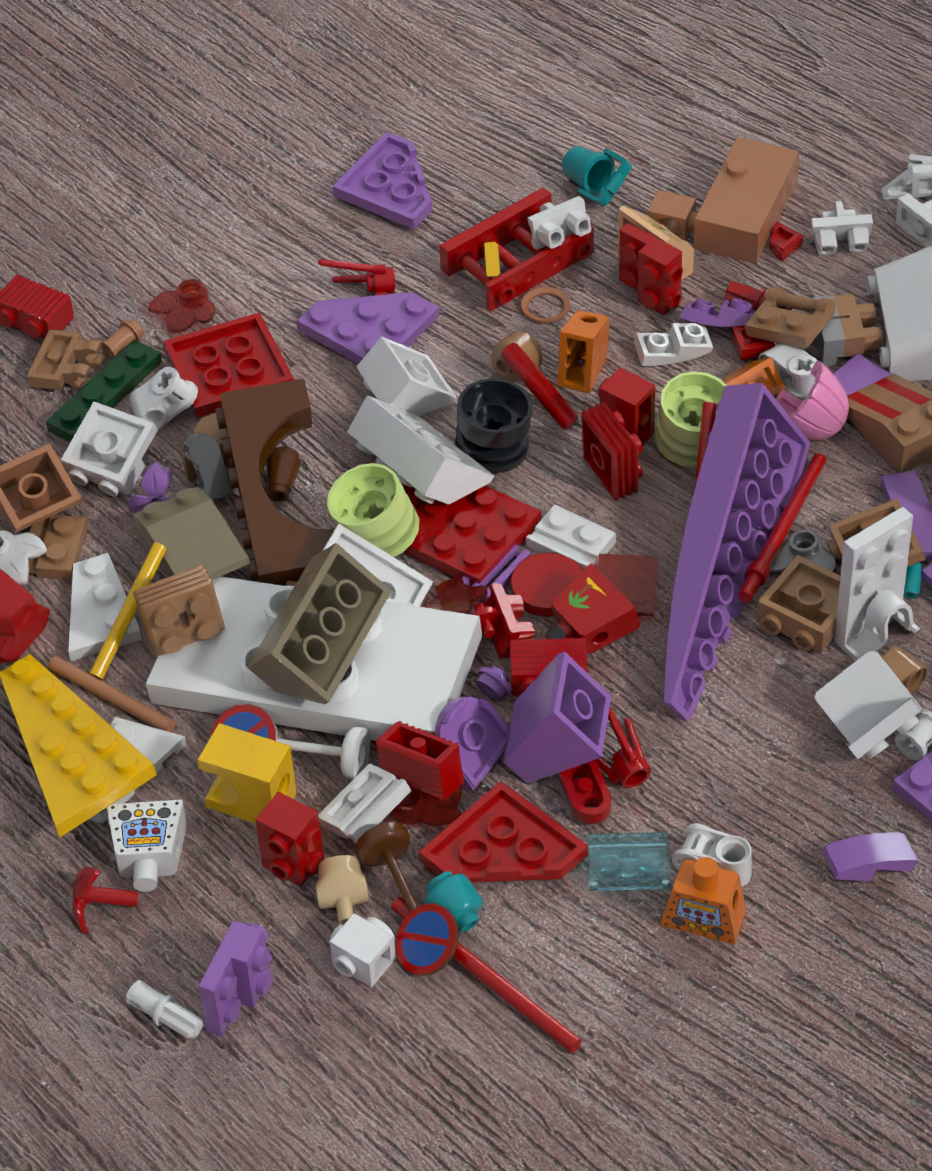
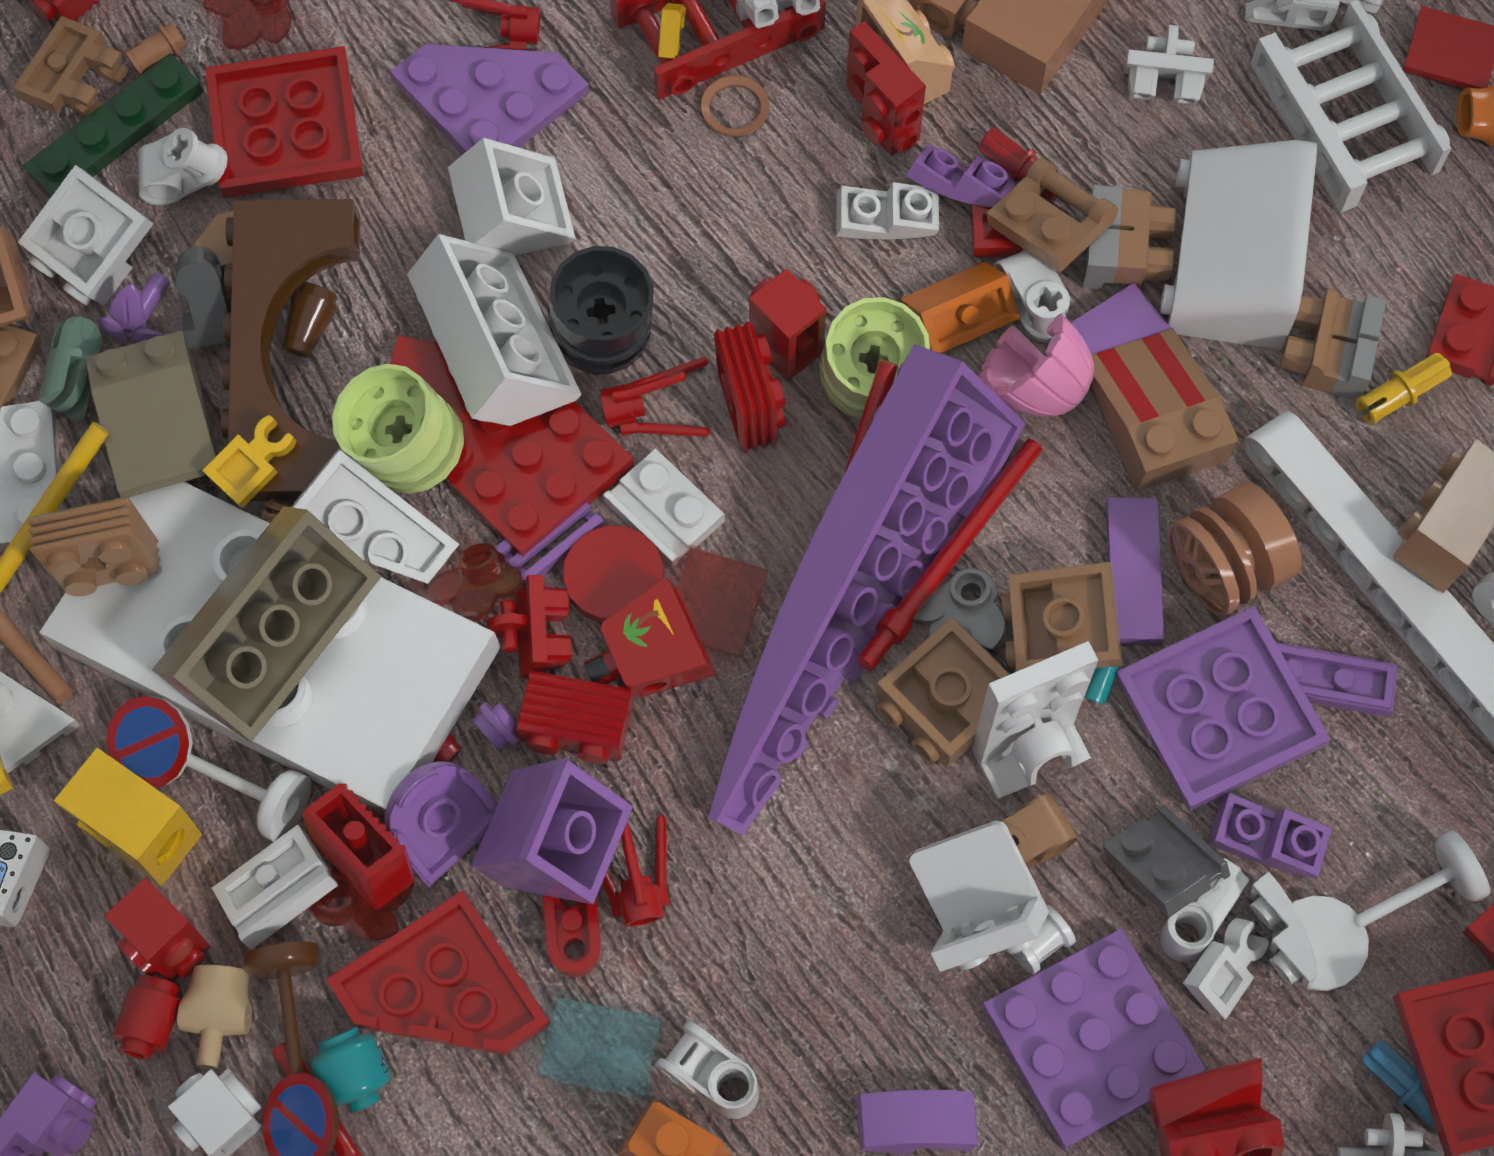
camera: 10 degrees right, 20 degrees up
(119, 530) = (66, 376): none -> sand green arm
(272, 551) = (244, 467): none -> yellow plate
(293, 901) = (147, 1017): none -> red brick
(525, 480) = (625, 403): none -> red plant
(527, 344) = (668, 192): medium nougat head -> none
(539, 385) = (683, 252): red axle -> none
(585, 338) = (763, 184): orange torso -> none
(784, 240) = (1087, 65): red tile -> none

